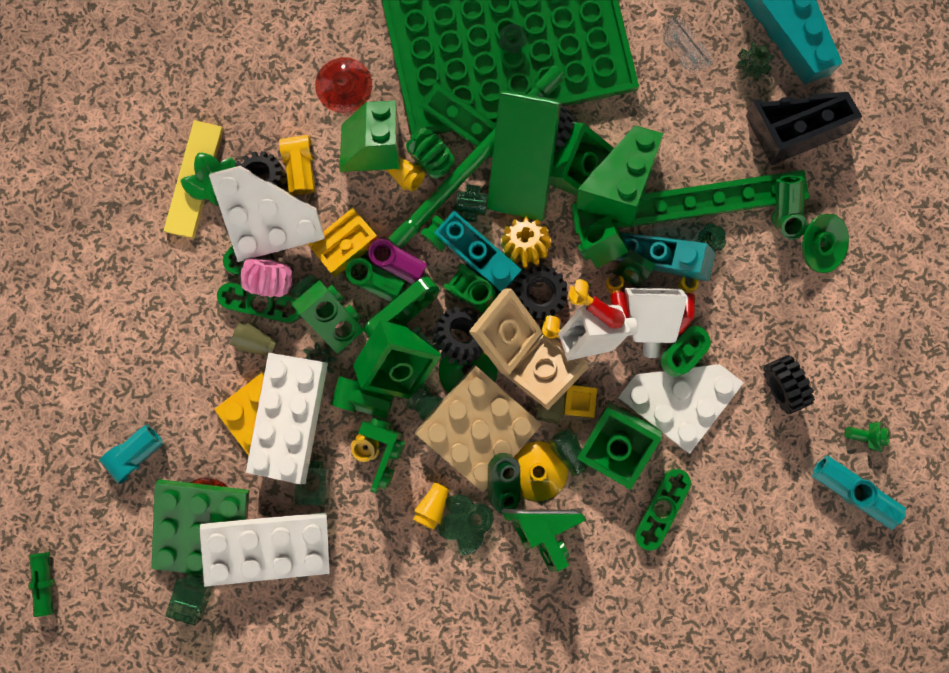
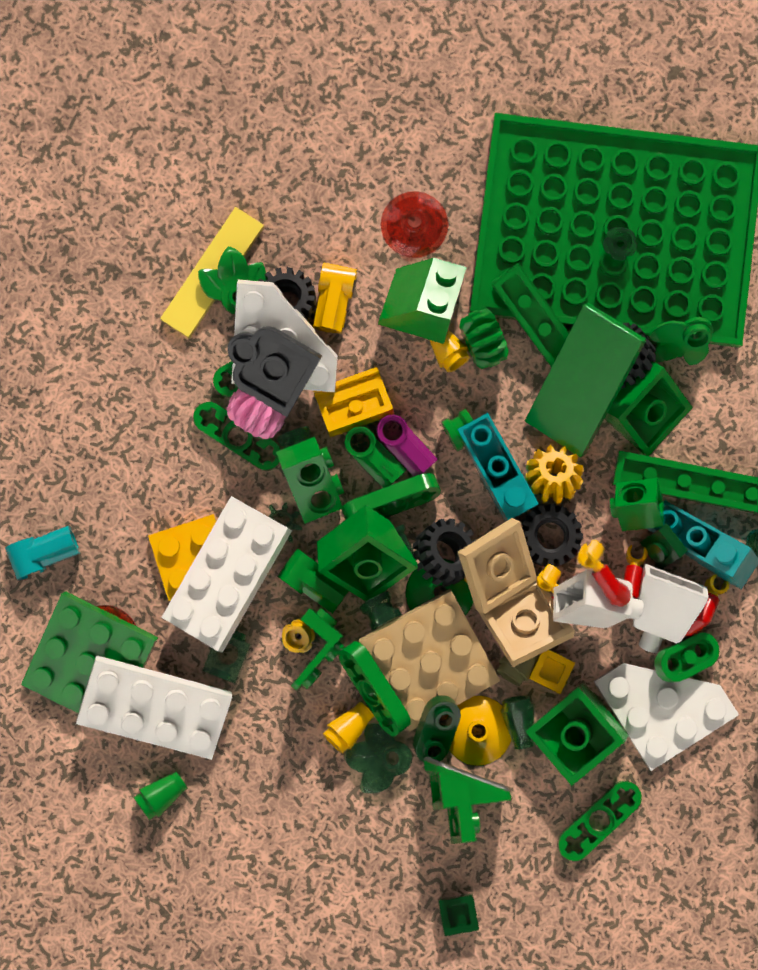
camera: 15 degrees right, 0 degrees up
(189, 599) = (51, 732): clear green brick -> none
(251, 340) = (216, 475): olive cone -> none
(263, 234) = (272, 366): none -> black plate
(296, 618) = (160, 795): none -> green cone
(411, 226) = (435, 410): green piece -> none
(441, 467) = (374, 688): none -> green beam
(469, 288) = (474, 502): green piece -> none
(471, 203) = (510, 409): clear green gear -> none
(575, 628) = (458, 914): none -> dark green plate
(587, 99) = (683, 340): none -> green plate
(622, 177) = (686, 441): green wedge -> none

